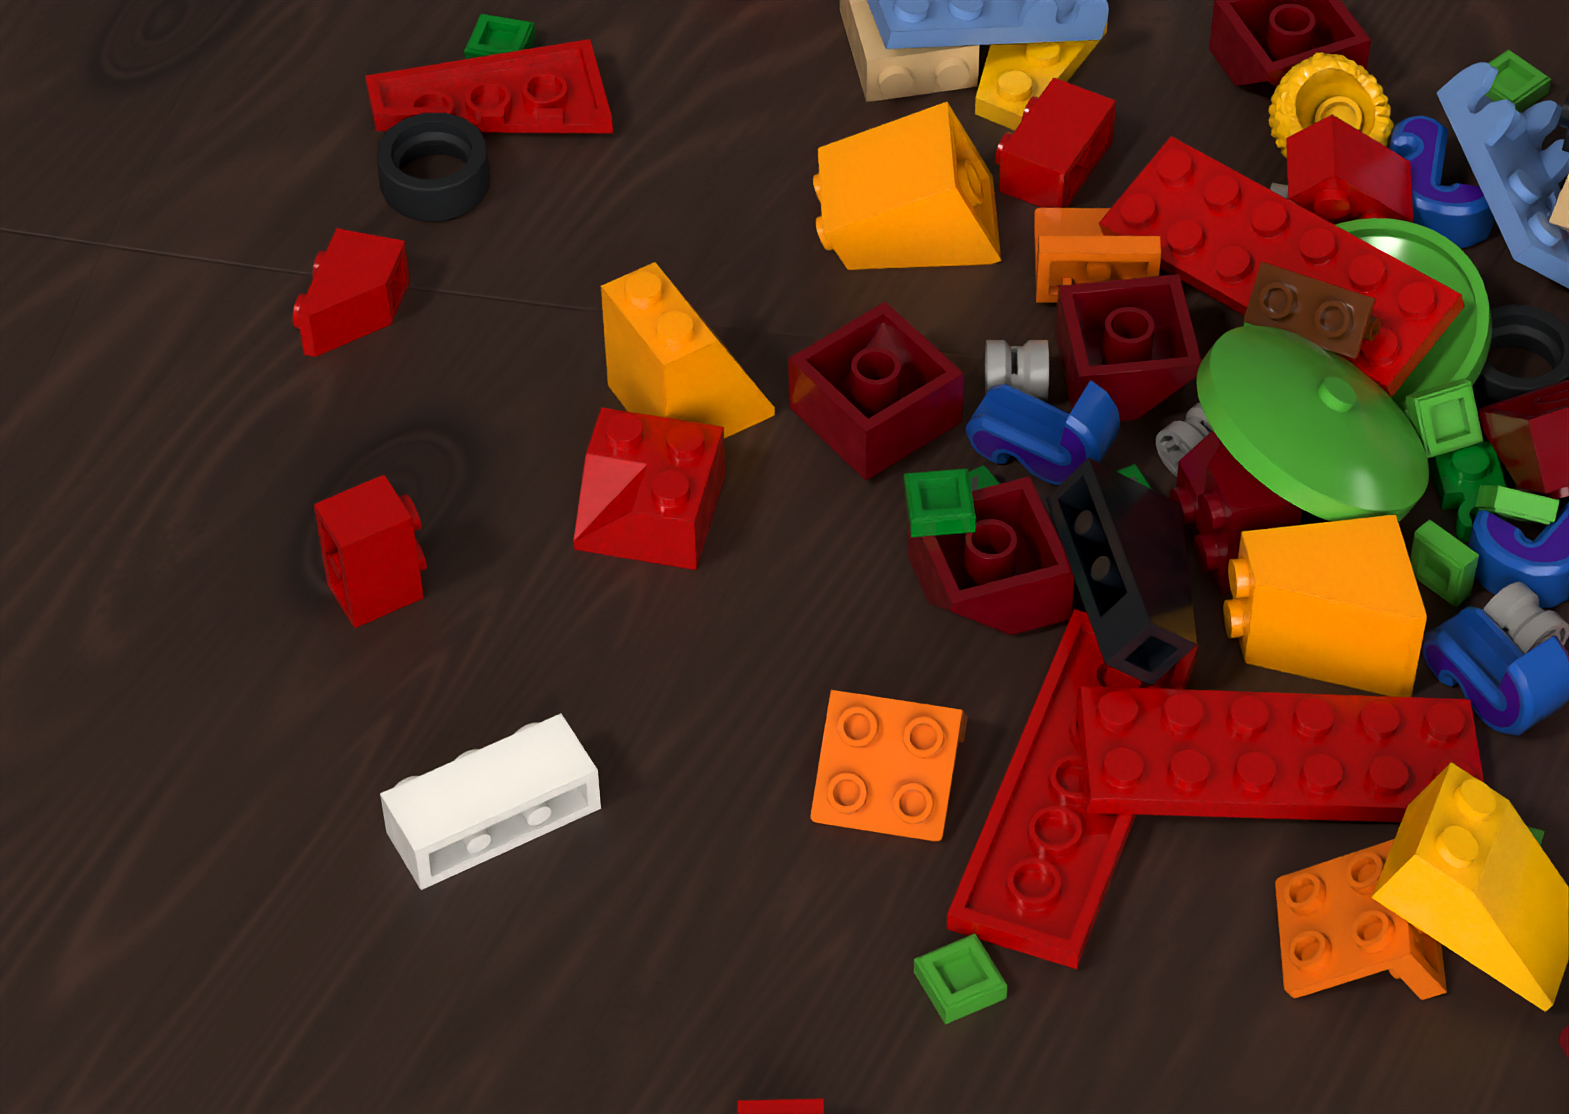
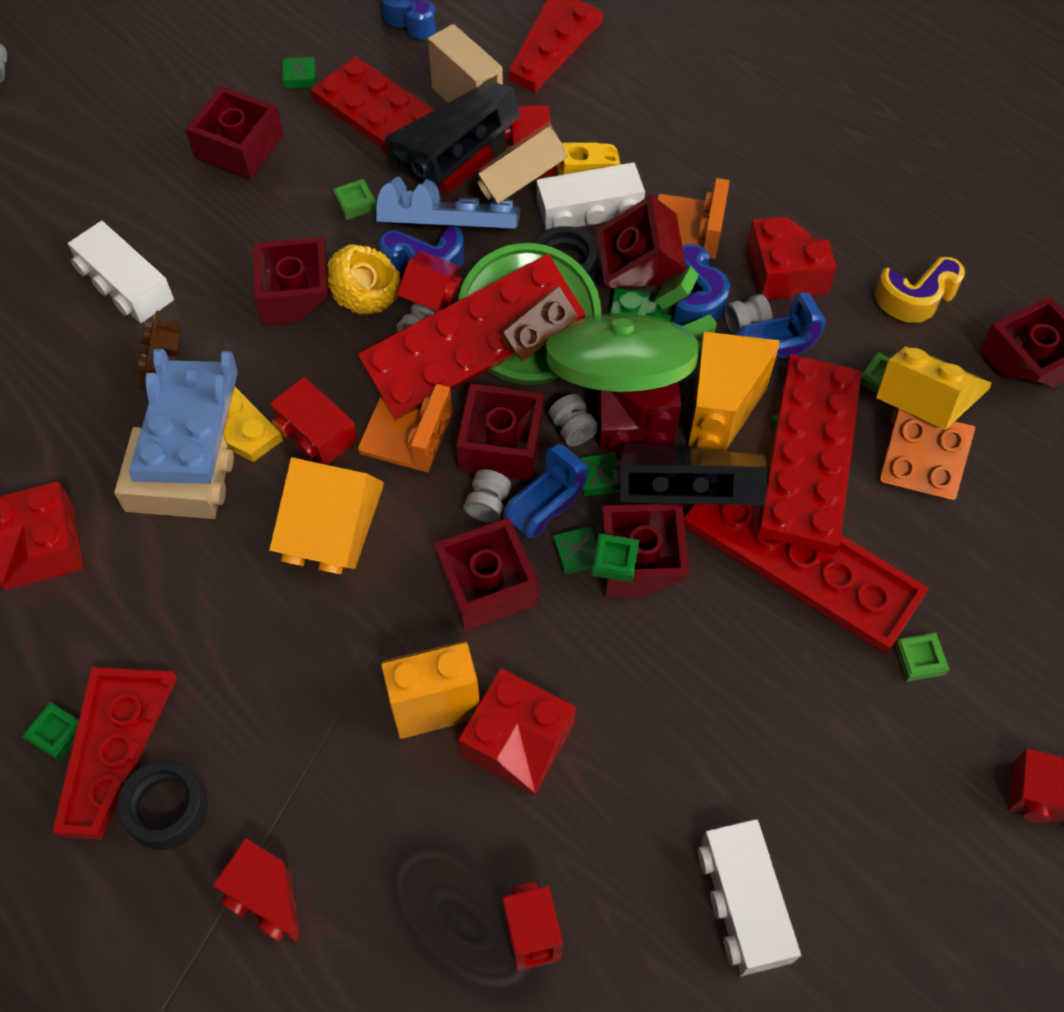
camera: 75 degrees left, 10 degrees up
(887, 765) = (766, 647): orange bracket -> none
(1445, 417) = (607, 296): bright green tile -> none

